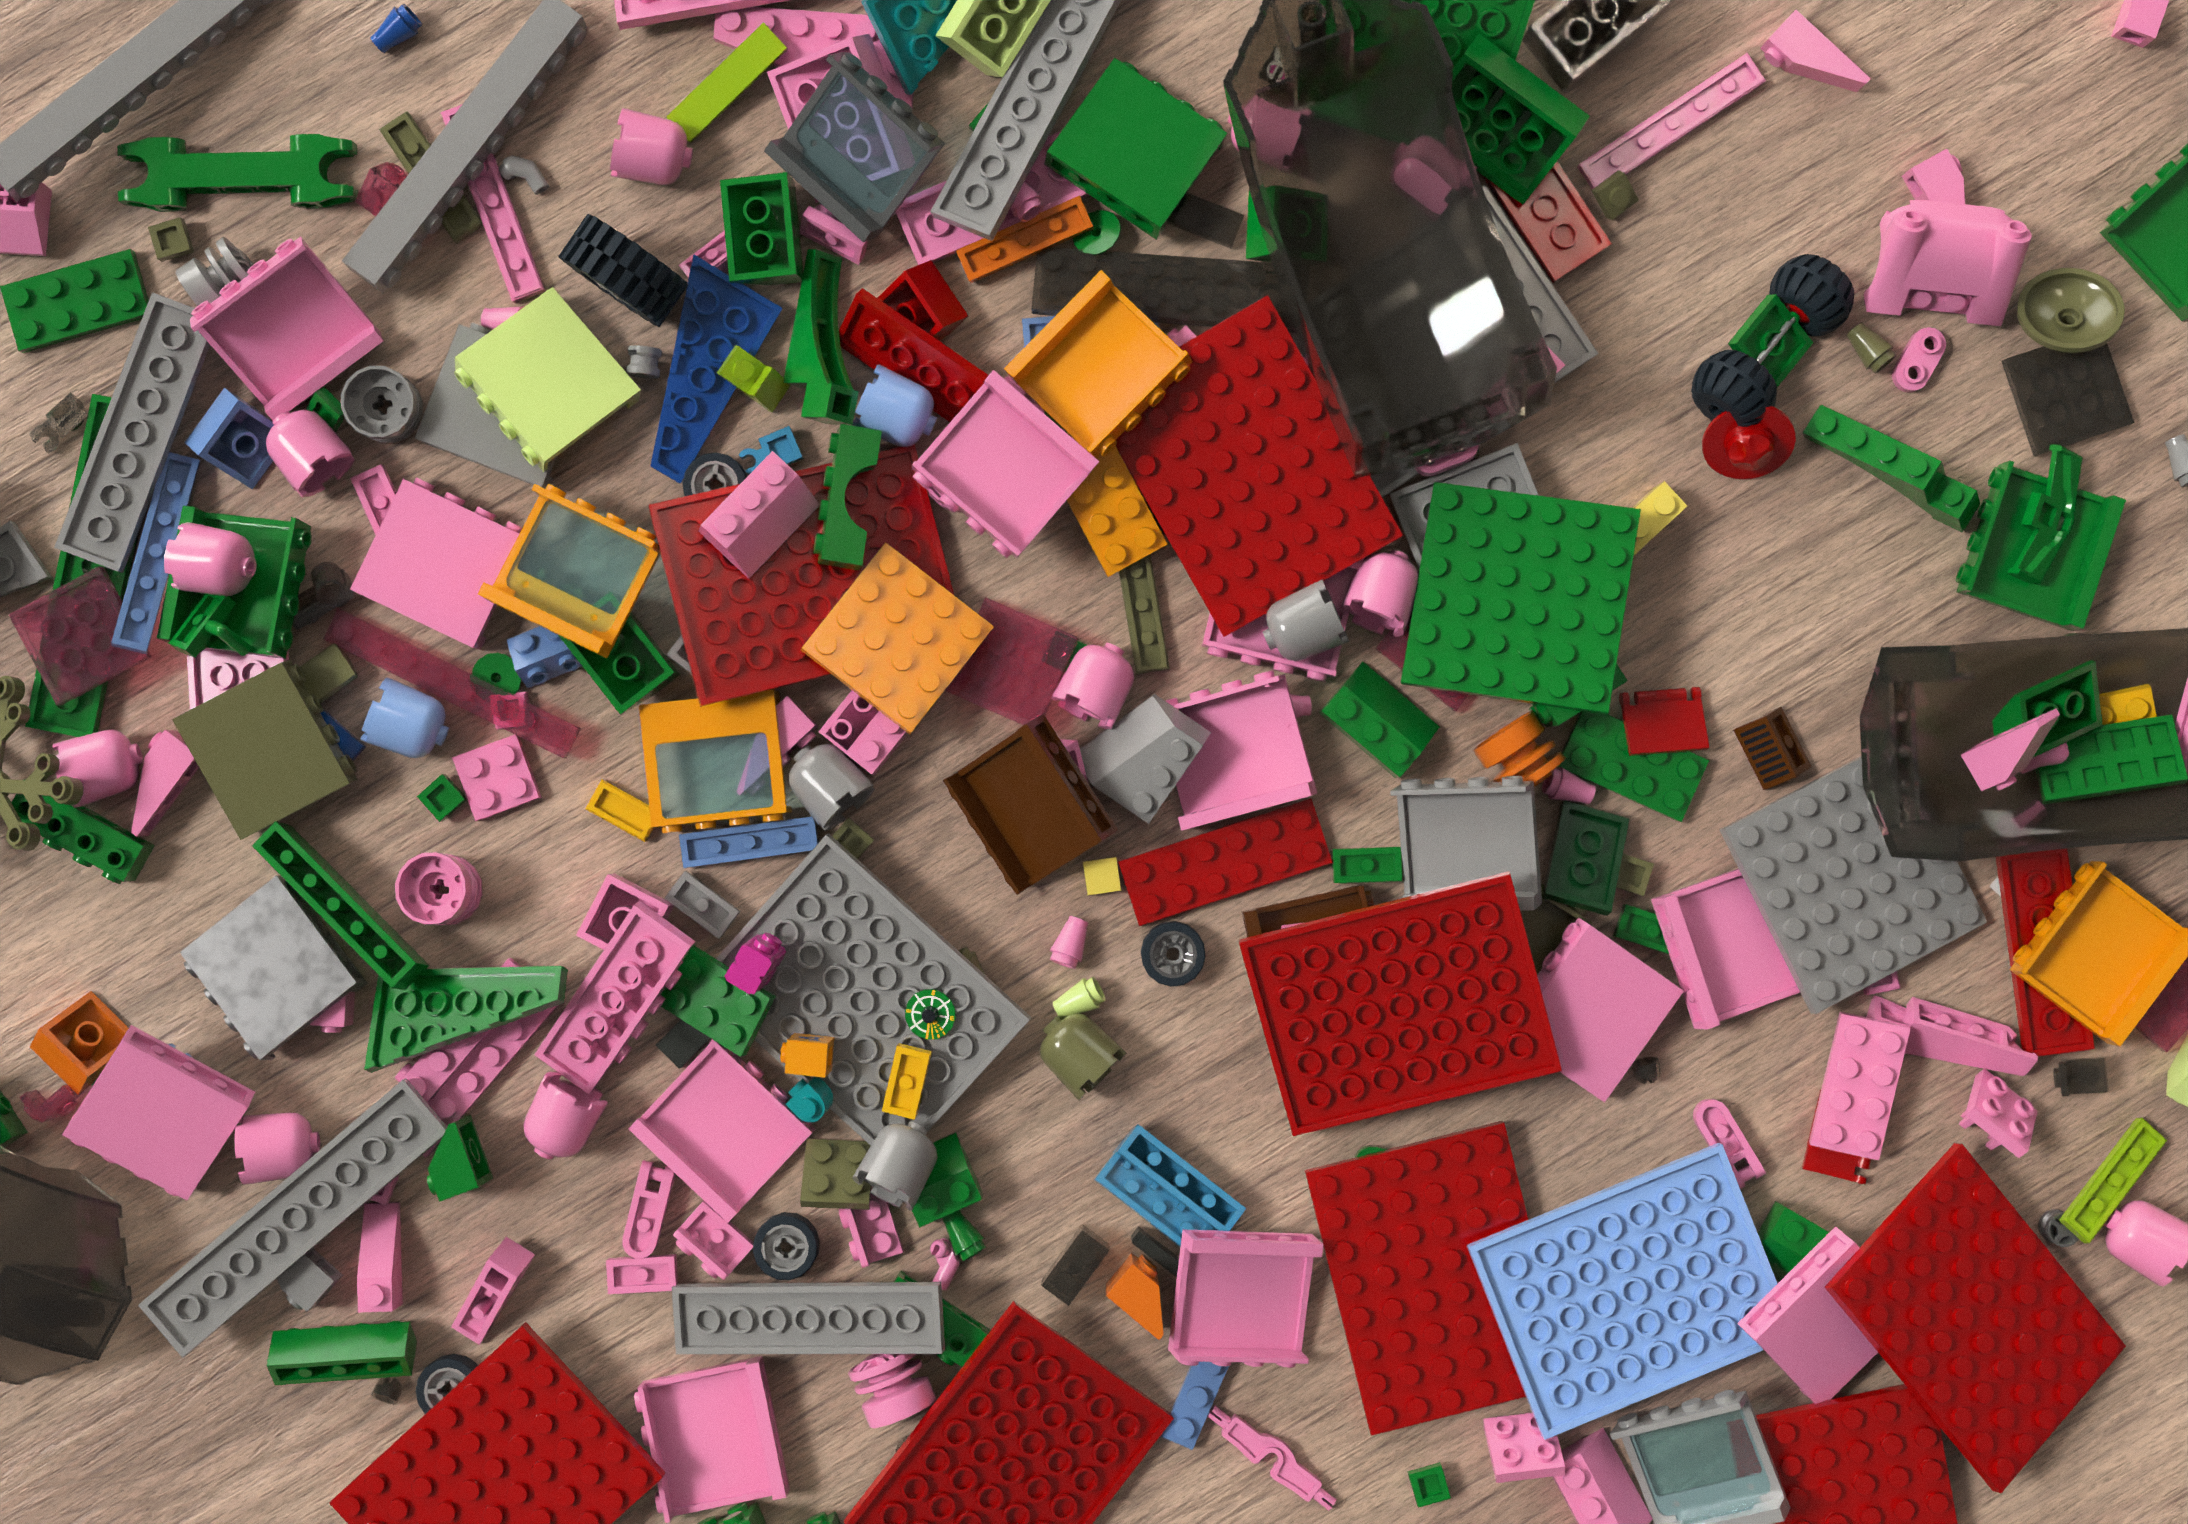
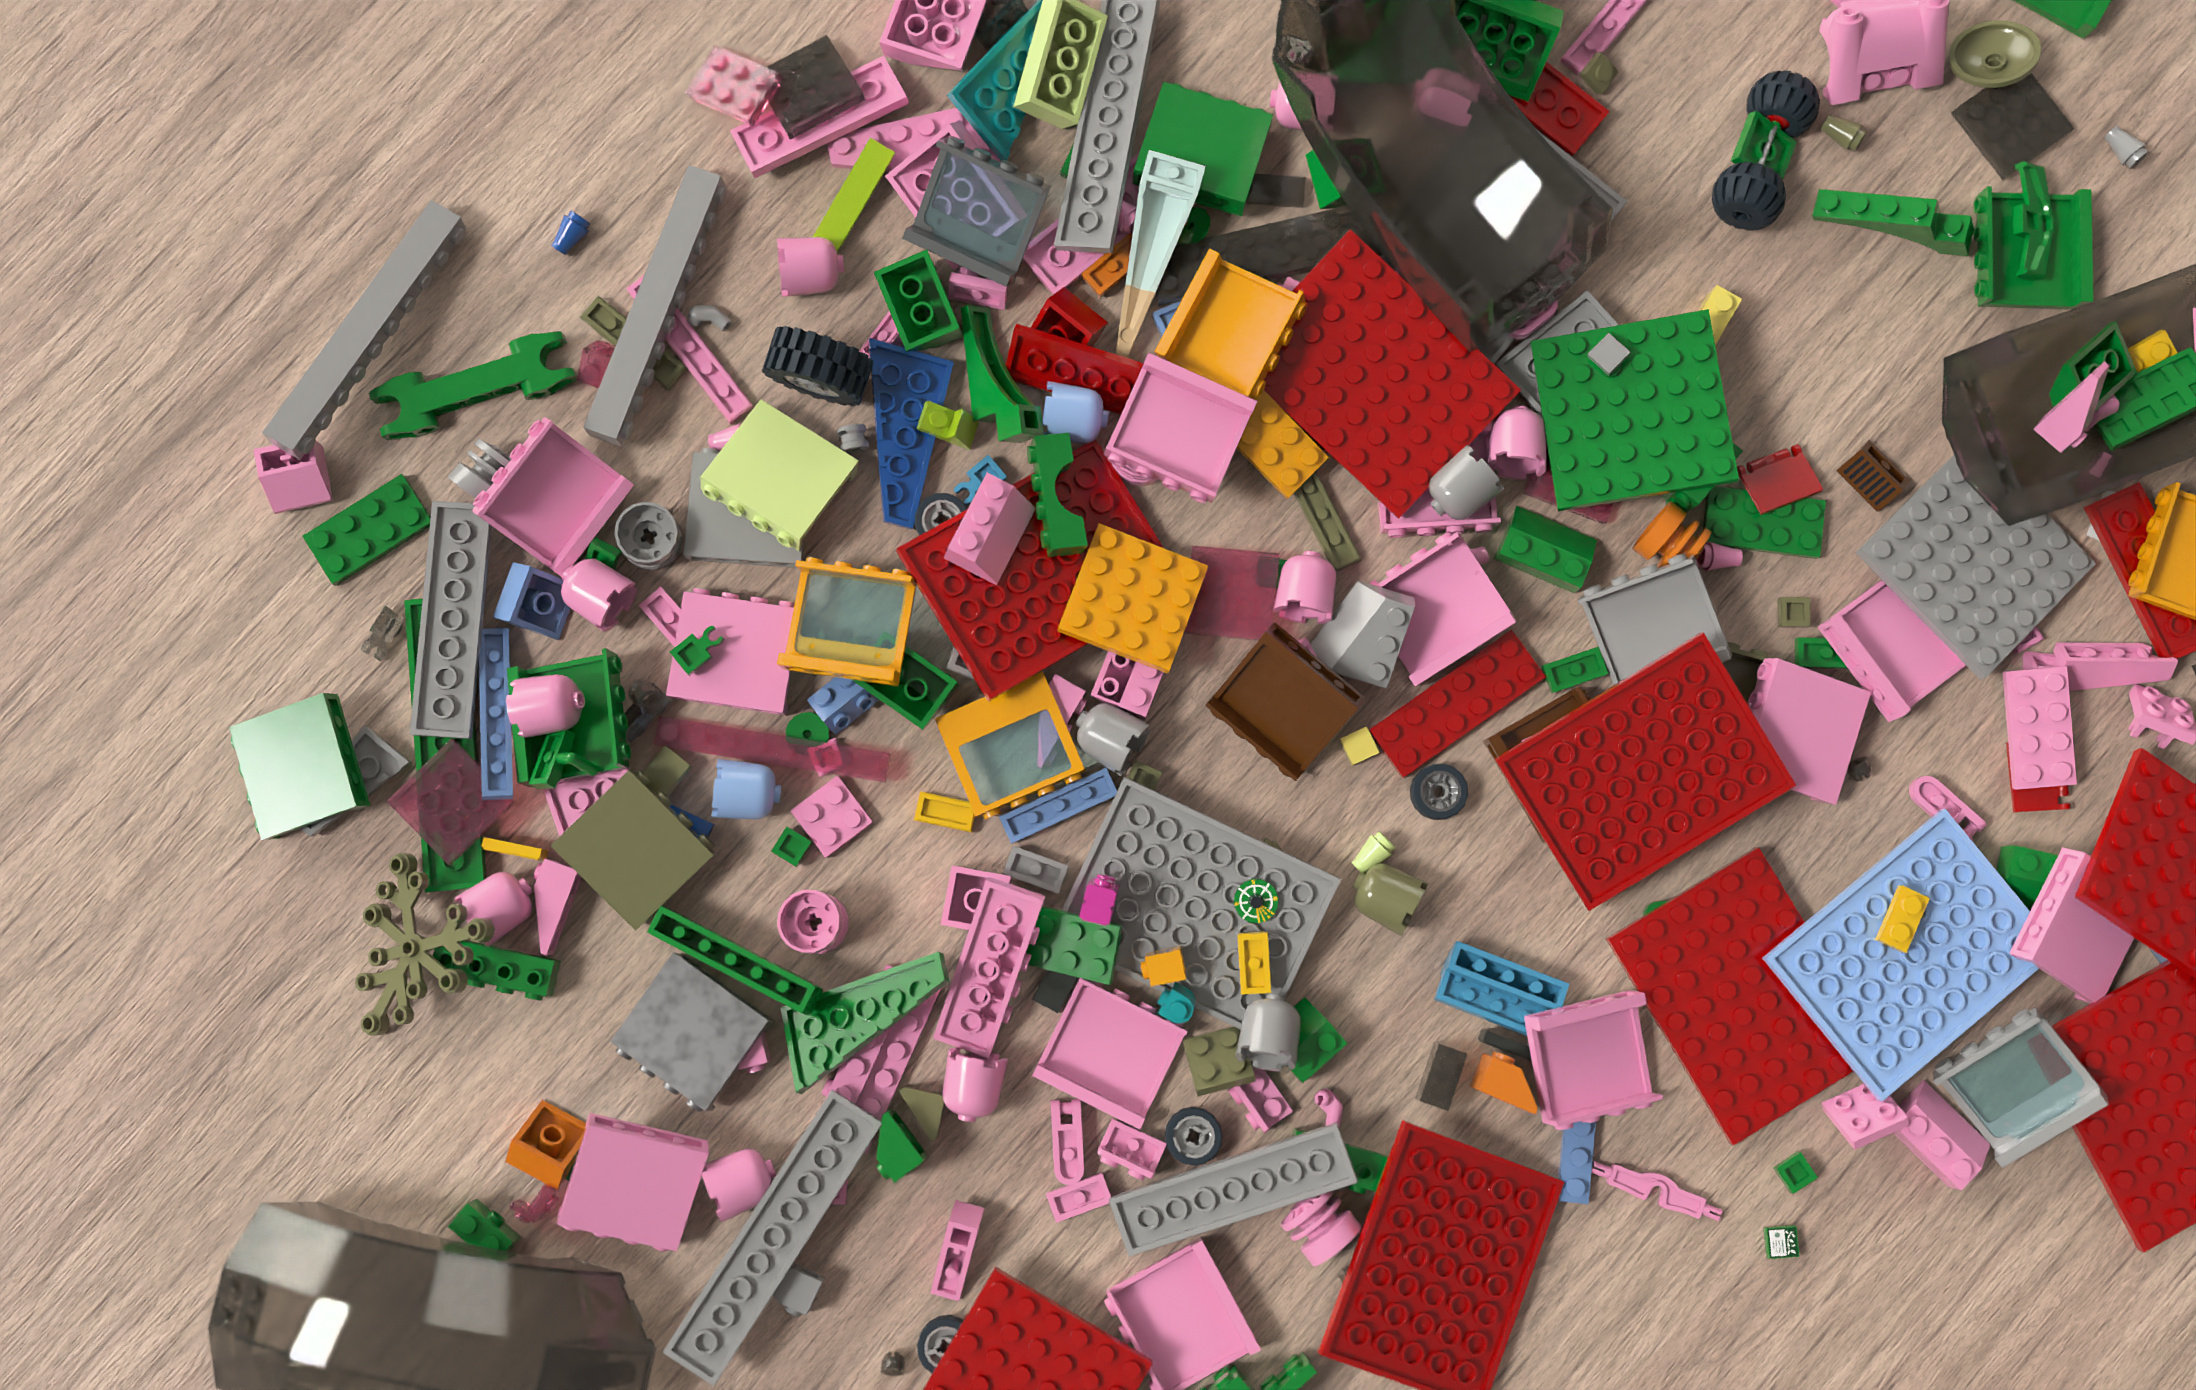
camera: 15 degrees left, 5 degrees down
(136, 708) = (514, 849): none -> yellow tile
(171, 239) = (433, 456): olive plate -> none
(342, 1353) = (846, 1342): green brick -> none
(380, 1259) = (853, 1251): bright pink slope -> none
(393, 551) = (694, 653): none -> green plate
(503, 1127) = (927, 1108): none -> olive slope
(963, 1236) = (1339, 1081): green cone -> none
(1066, 205) = (1162, 209): none -> light aqua plate
(1070, 943) = (1351, 809): bright pink cone -> none
(1512, 526) = (1608, 354): none -> light grey tile
(1585, 858) = (1753, 609): dark green plate -> none
(1632, 1250) = (1902, 919): none -> yellow plate
(1748, 450) = (1774, 241): red hat -> none
(1919, 358) = (1885, 128): bright pink plate -> none

